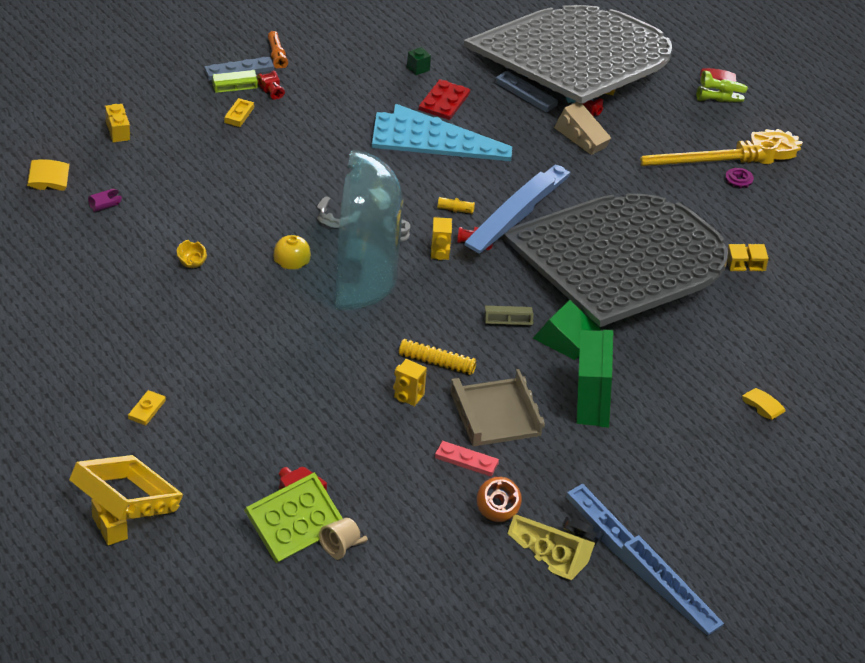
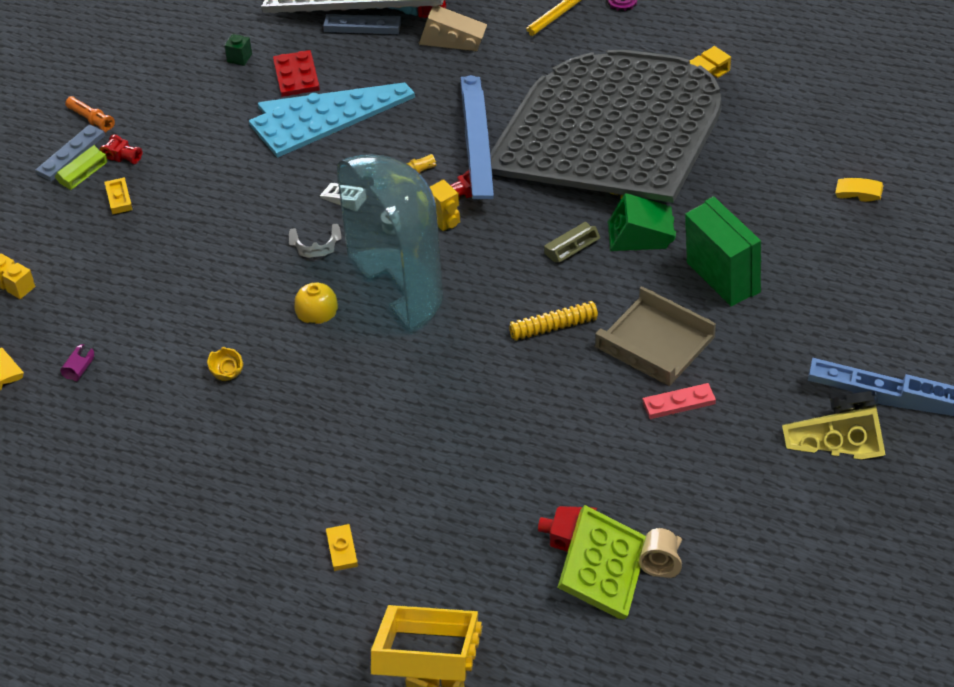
camera: 30 degrees left, 5 degrees up
(409, 382) = (564, 360): yellow brick -> none
(492, 511) = (762, 424): orange wheel -> none

